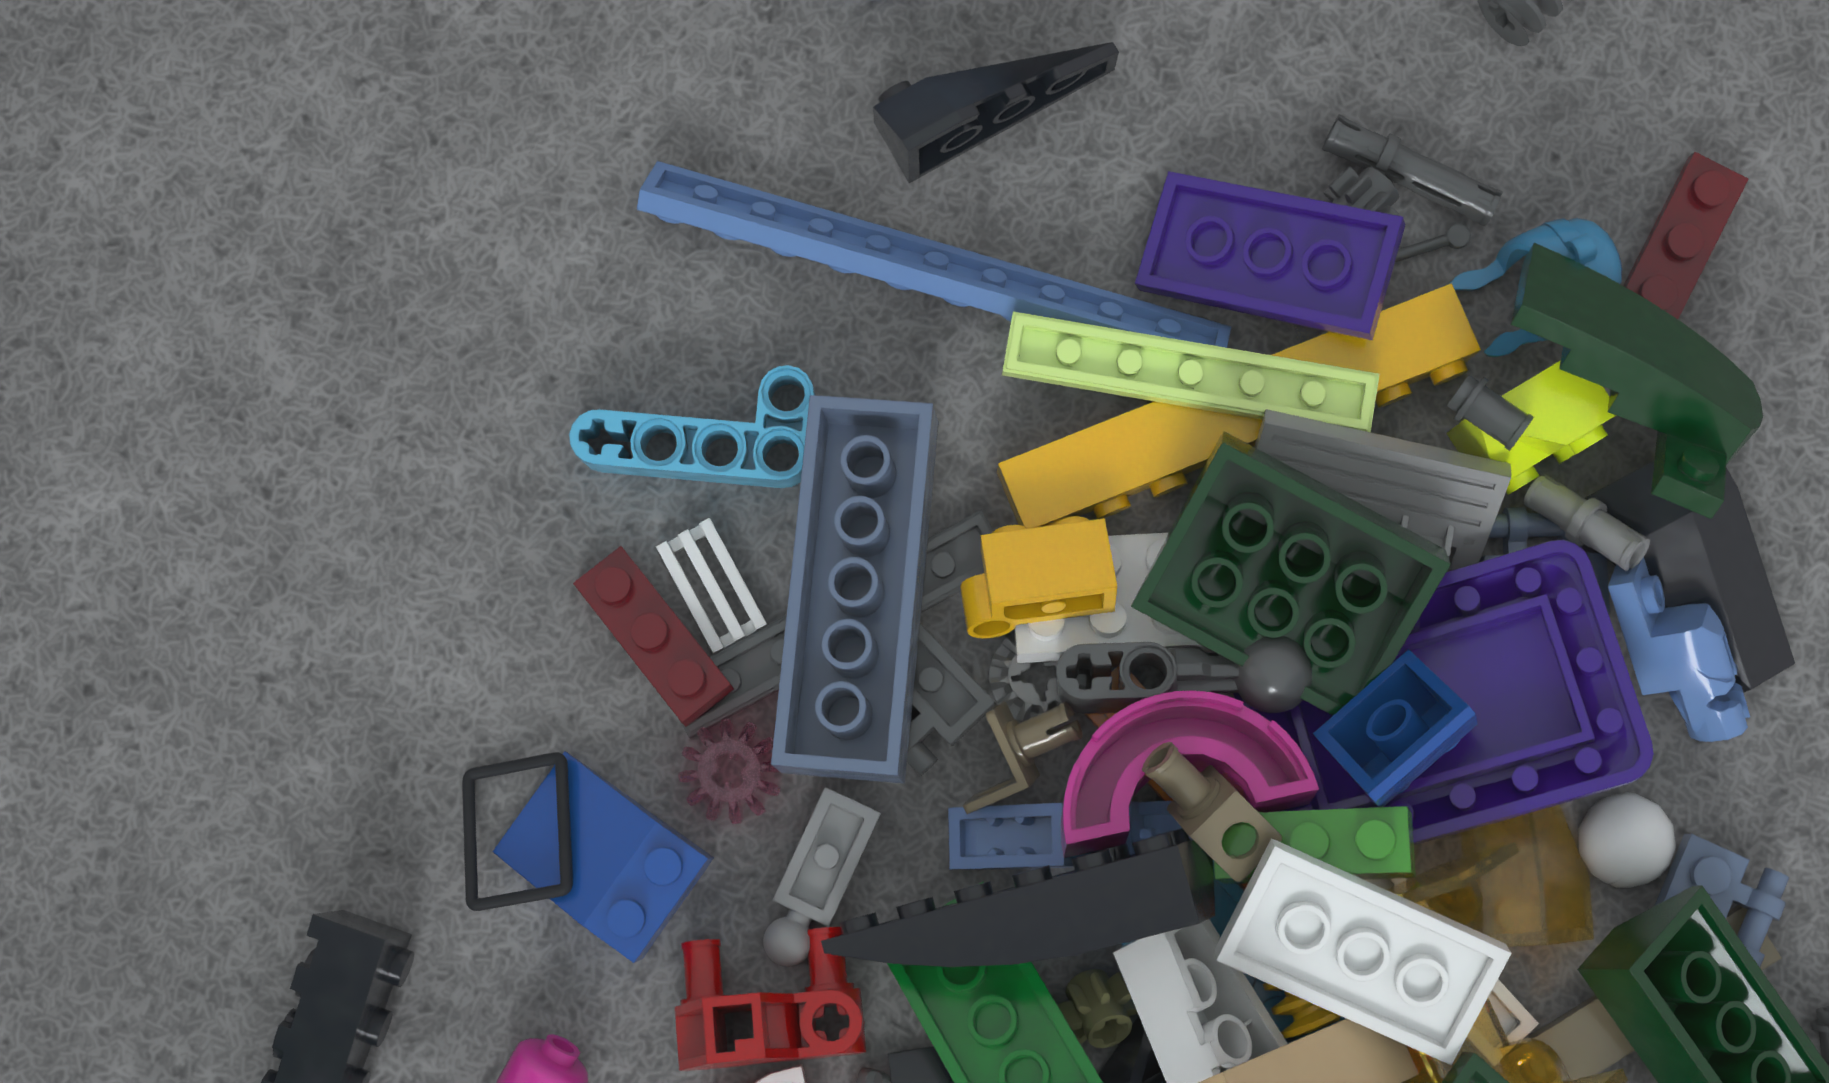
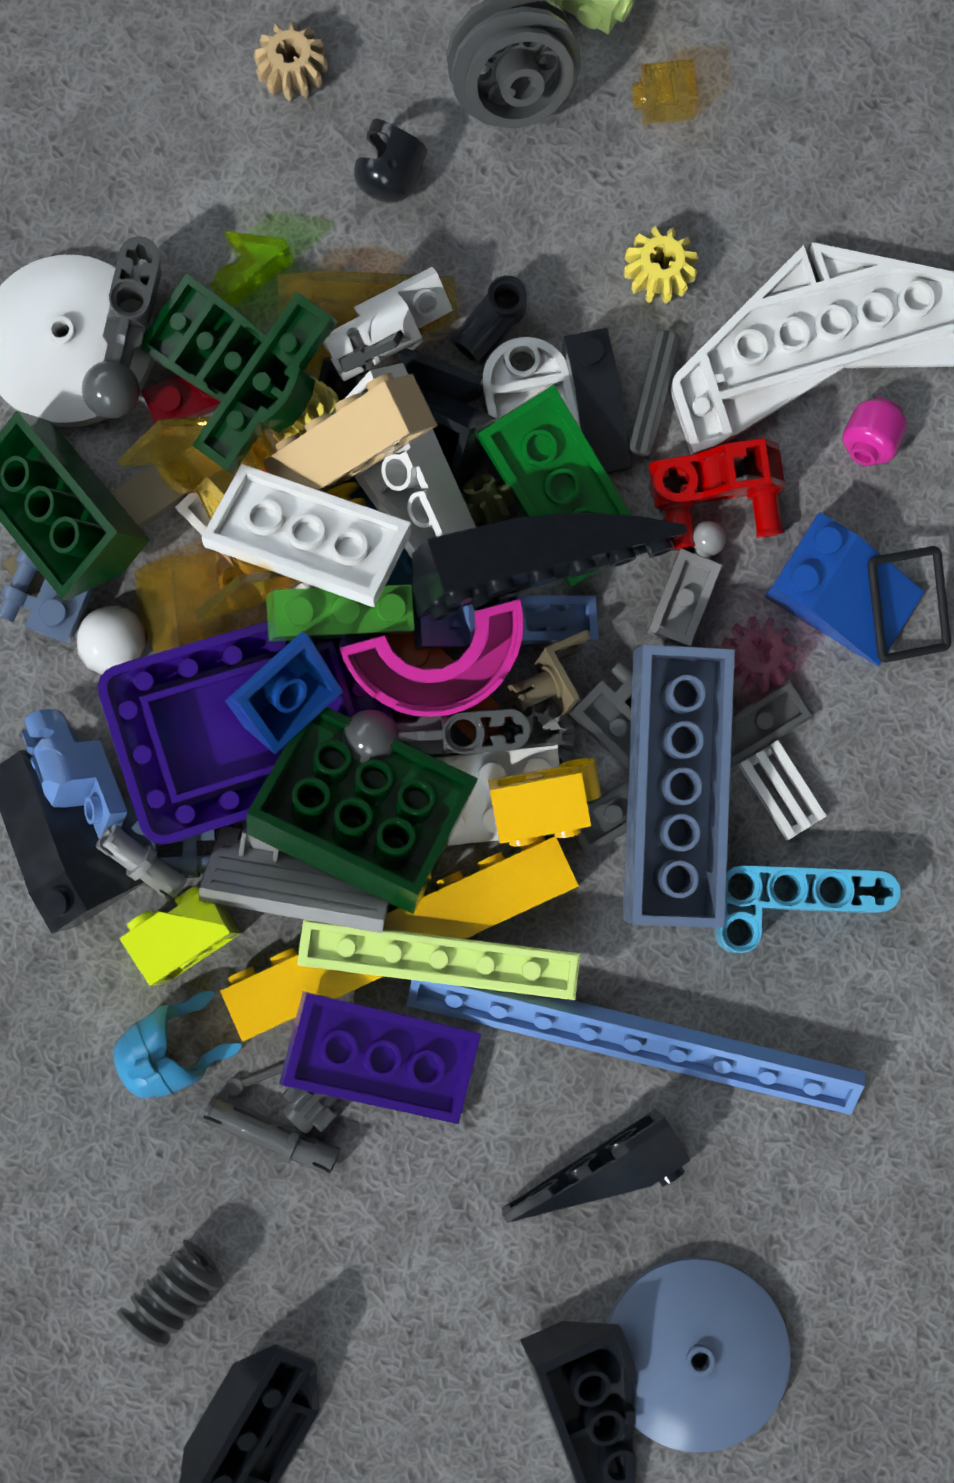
camera: 175 degrees right, 0 degrees up
(653, 636) = (823, 750): dark red plate -> none
(1207, 807) = (418, 629): dark tan bracket -> none
(1489, 412) = (217, 931): dark grey pin -> none
(1654, 370) = (95, 974): dark green slope -> none
(1685, 233) = (66, 1087): dark red plate -> none

